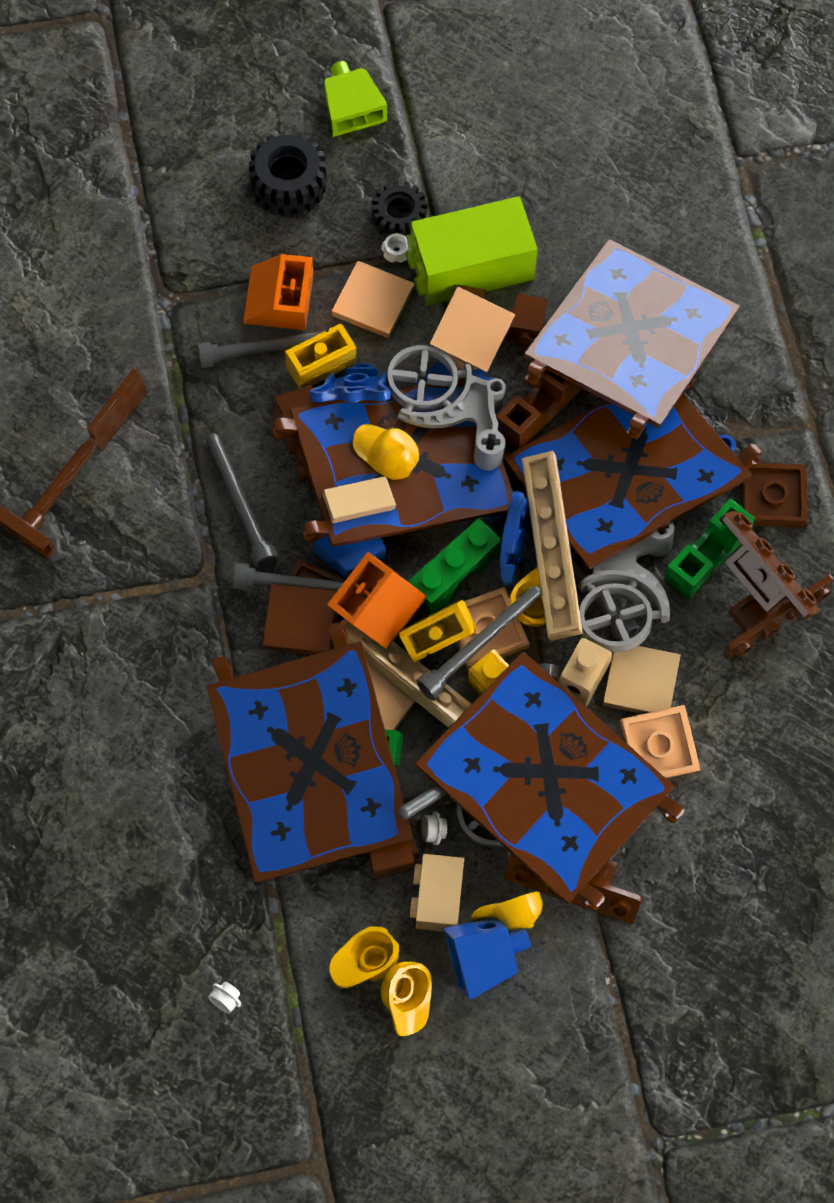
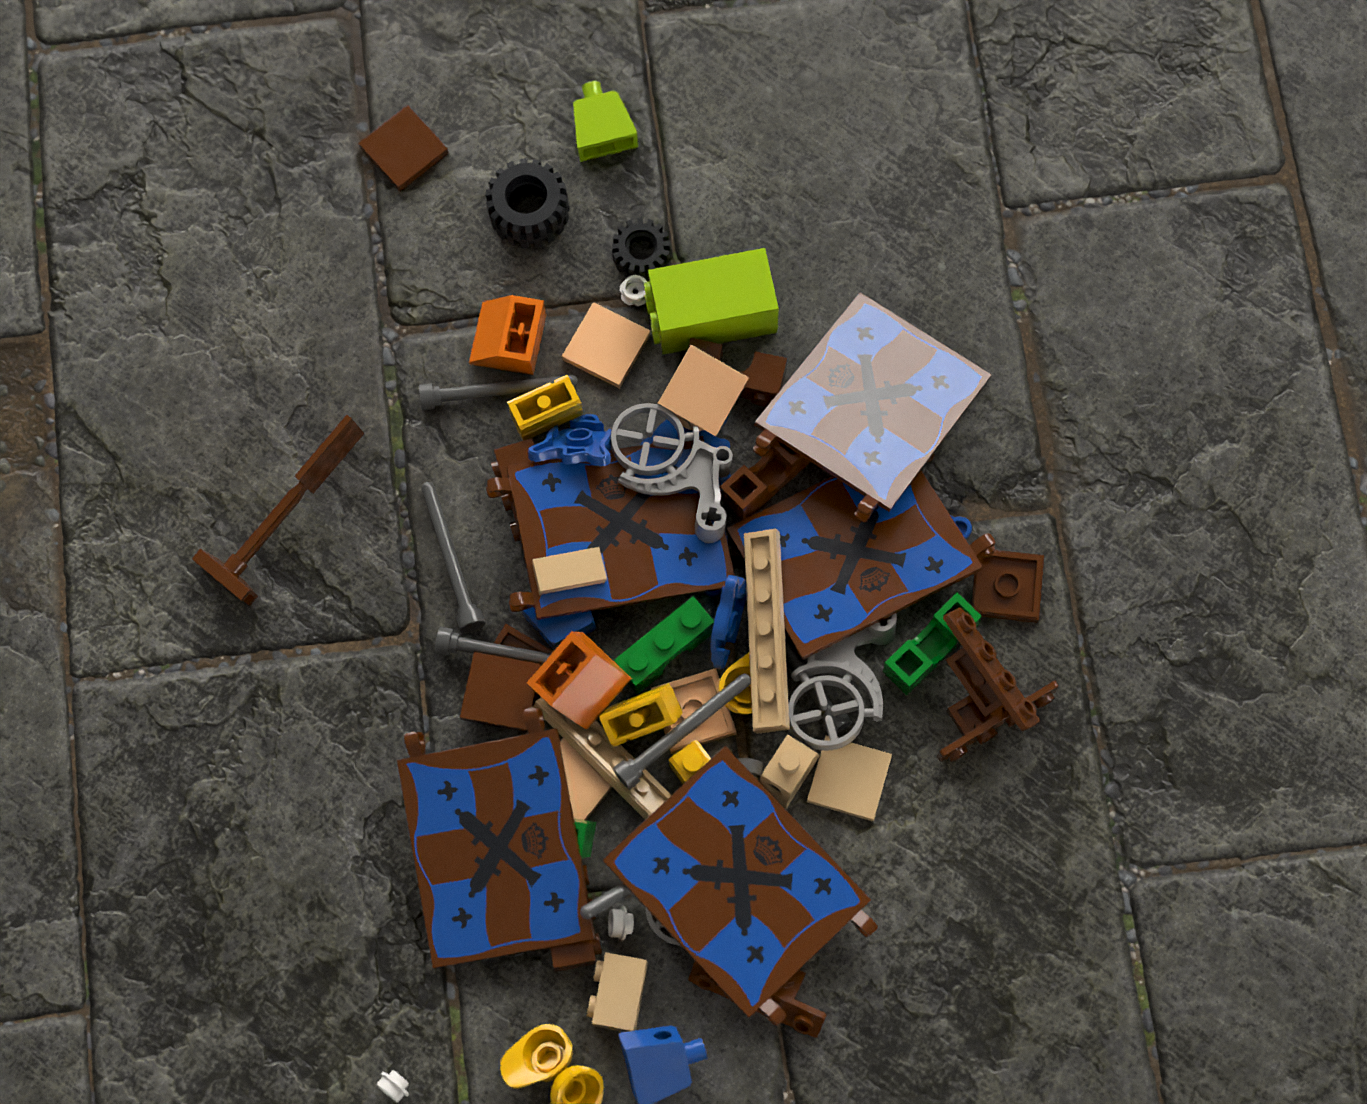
camera: 10 degrees right, 5 degrees up
(164, 132) = (403, 148): none -> reddish brown tile
(386, 451) = (602, 517): yellow piece -> none
(514, 913) = (694, 1019): yellow piece -> none
(662, 740) = (863, 847): light nougat tile -> none

